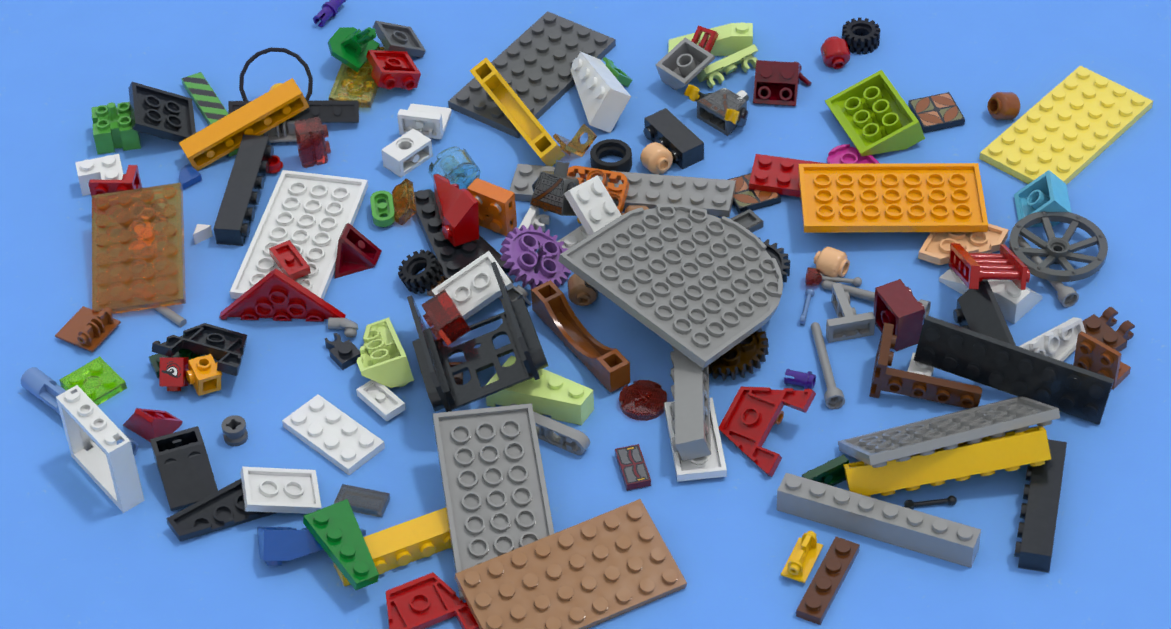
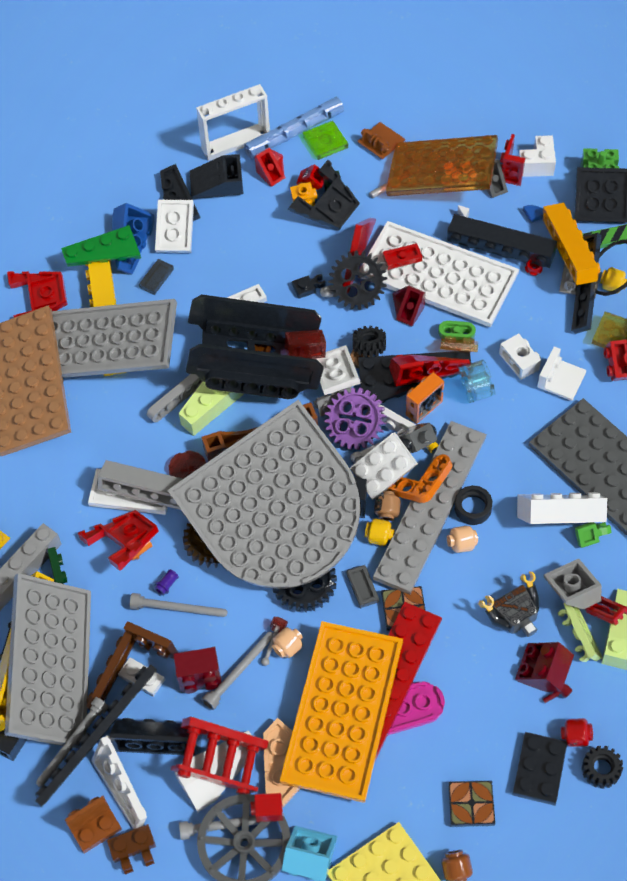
camera: 105 degrees right, 15 degrees up
(234, 430) = (250, 214): dark grey wheel -> none
(311, 142) = (541, 287): brick -> none
(333, 434) = (226, 268): white plate -> none
(336, 290) = (362, 296): none -> black gear
(383, 356) = (275, 293): yellowish green wedge -> none
(517, 112) = (571, 420): yellow arch -> none
(574, 145) = (499, 477): clear orange bracket -> none
(632, 467) = (122, 446): tile -> none
(675, 136) = (486, 559): black brick -> none
(809, 293) = (265, 620): medium blue hinge -> none
(848, 324) = (223, 636): light grey bracket -> none
(875, 116) = (469, 738): lime slope -> none
(897, 71) = (540, 768): none -> black plate
(982, 377) = (97, 708): none -> light grey piece
(1022, 220) = (267, 807): none -> red brick

